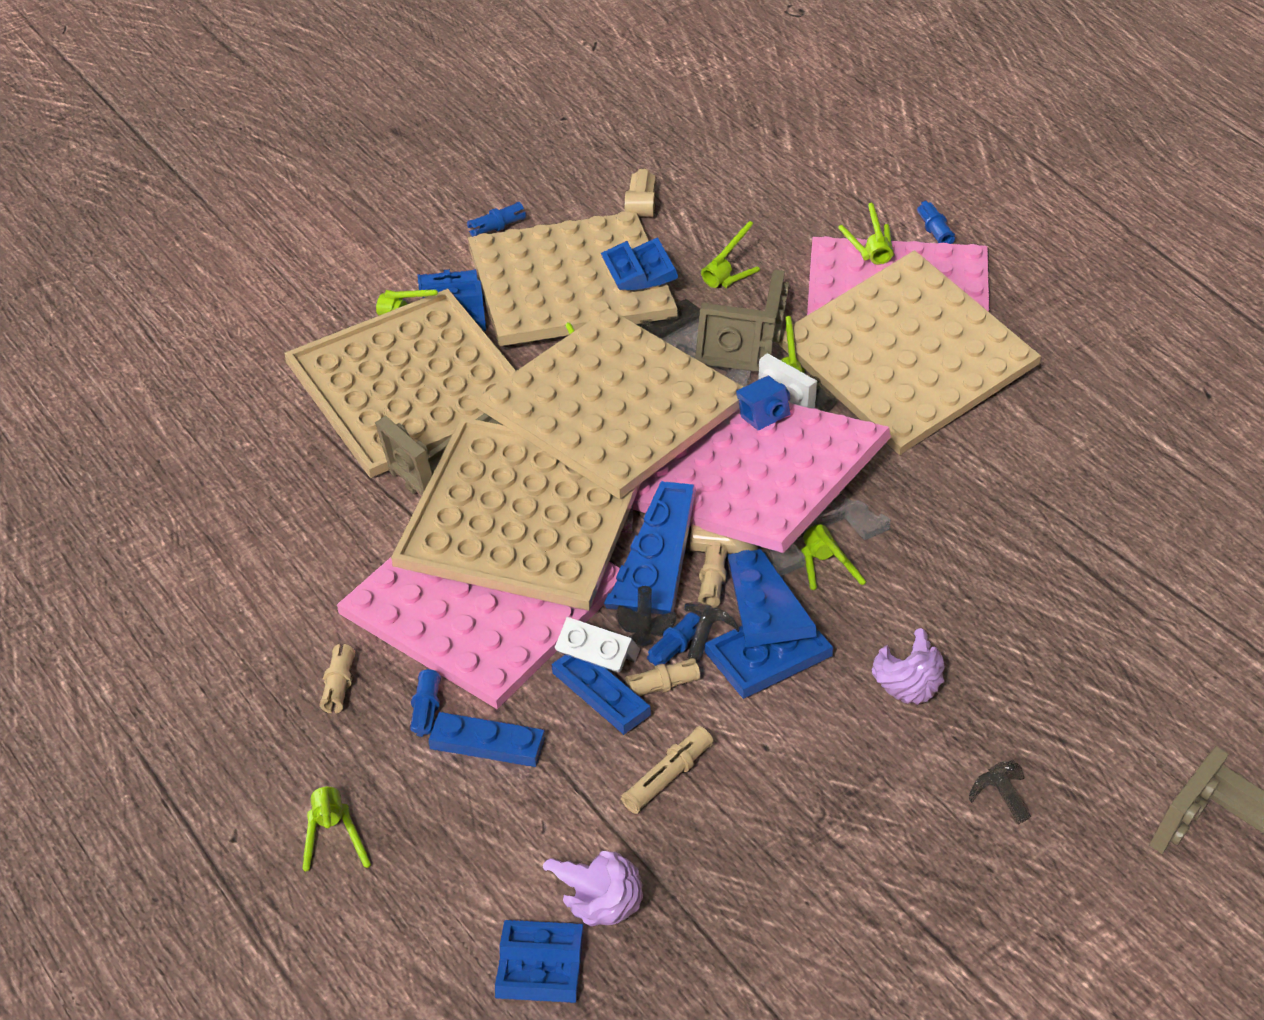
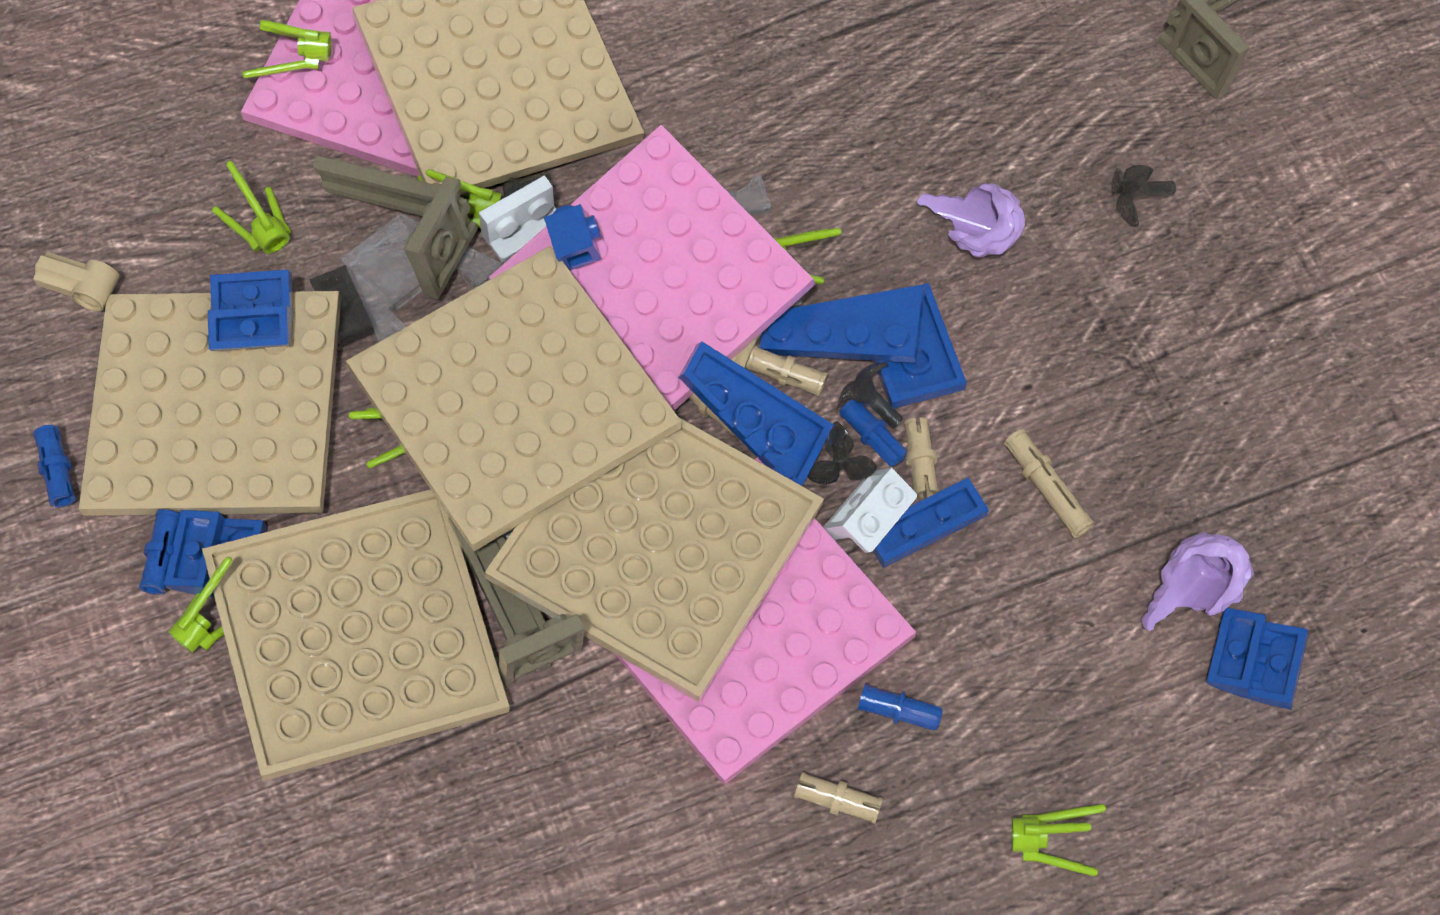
camera: 80 degrees left, 20 degrees up
(487, 739) = (961, 654): blue plate -> none

